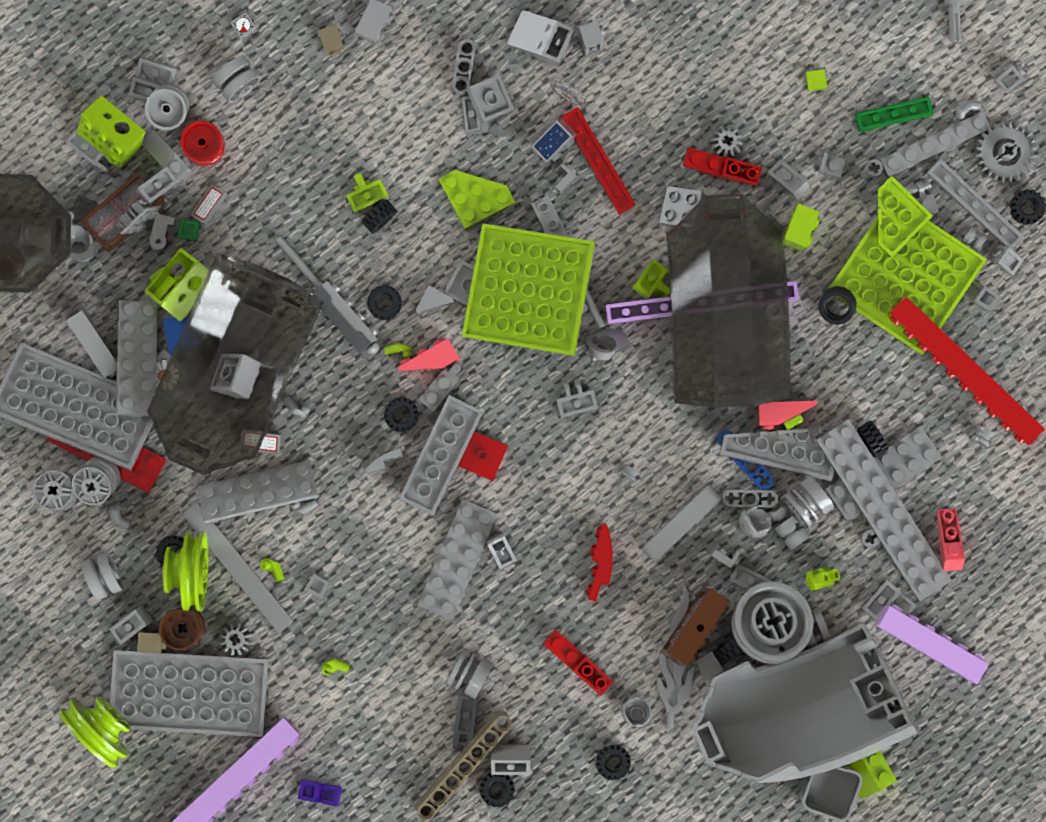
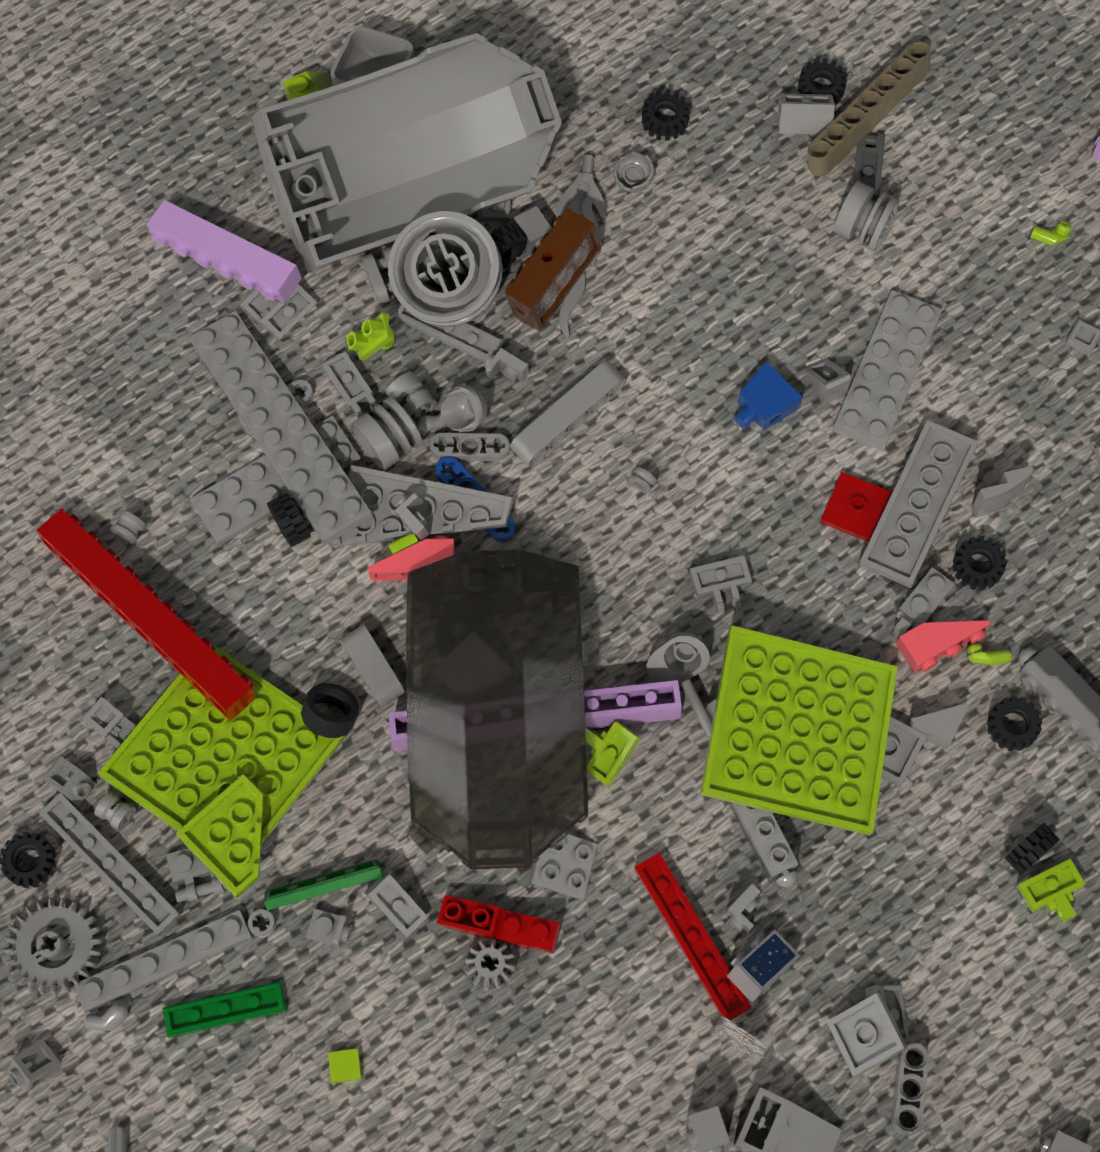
camera: 175 degrees left, 15 degrees down
(319, 792) = (1065, 84): dark purple slope -> none
(475, 196) = (883, 884): lime plate -> none
(544, 533) = (766, 399): none -> blue torso
(578, 662) = (715, 237): red slope -> none
(603, 554) = (682, 362): red slope -> none
(788, 435) = (414, 521): none -> light grey bracket
(800, 226) = (380, 824): lime brick -> none
(811, 338) = (372, 666): none -> light grey beam
(834, 543) = (349, 383): none -> light grey hinge
(837, 191) = (322, 884): none -> green tile
(950, 540) = (186, 390): coral slope -> none

